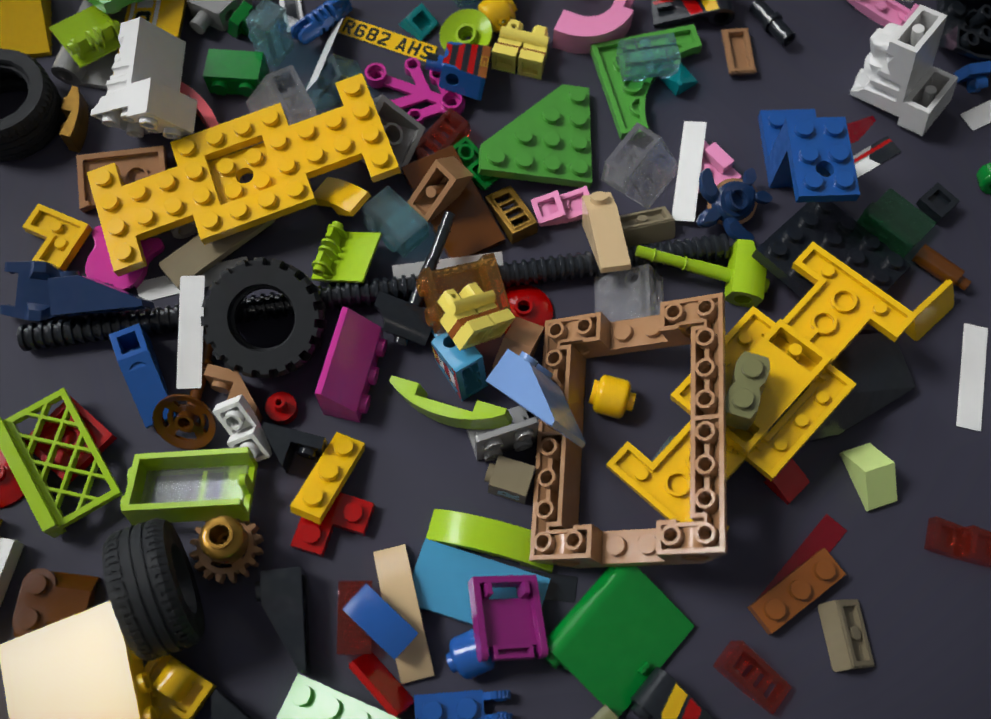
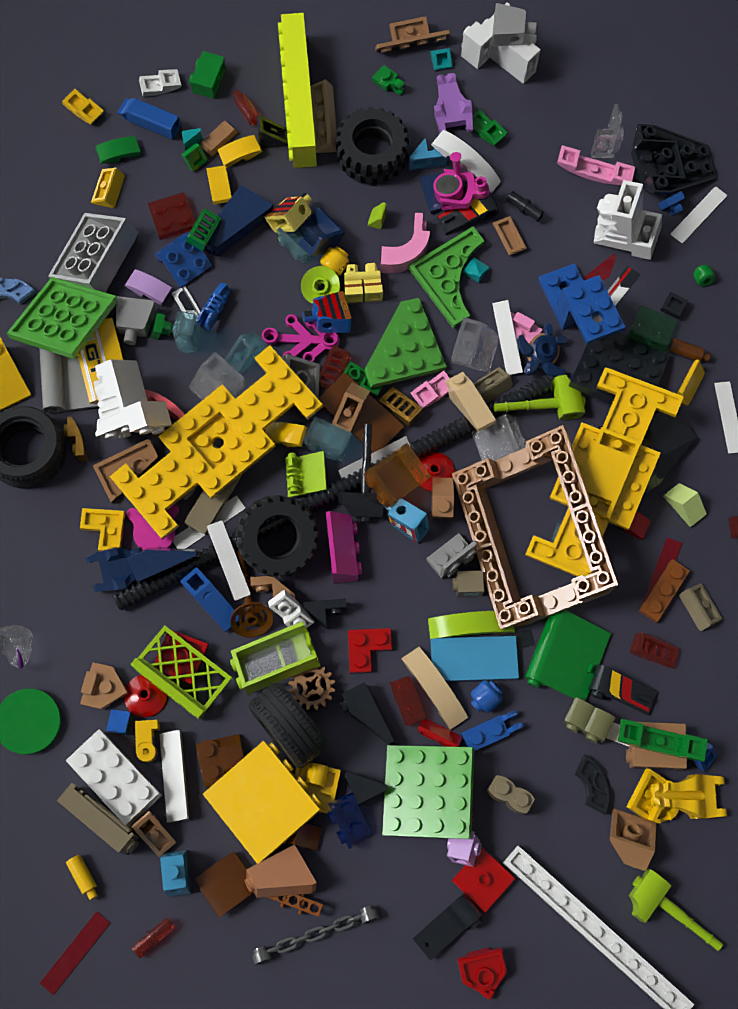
camera: 20 degrees left, 5 degrees up
(88, 35) = (62, 376): lime hinge -> none
(214, 541) = (313, 689): pearl gold head -> none
(234, 71) = (173, 367): green brick -> none
(281, 408) = (305, 593): red tile -> none
(325, 52) = (230, 334): white sticker -> none
(327, 478) = (356, 622): yellow plate -> none
(380, 621) = (427, 696): blue slope -> none
(386, 39) = (264, 305): yellow sticker -> none
(419, 22) = (281, 285): teal slope -> none
(473, 317) = (410, 489): light yellow hips -> none
(483, 416) = (440, 550): lime slope -> none
(507, 625) = (501, 673): magenta container -> none
(535, 392) = (462, 522): medium blue slope -> none
(612, 396) = (512, 509): yellow head -> none
(648, 57) = (453, 264): clear light blue brick -> none
(746, 390) = (596, 477): olive brick -> none

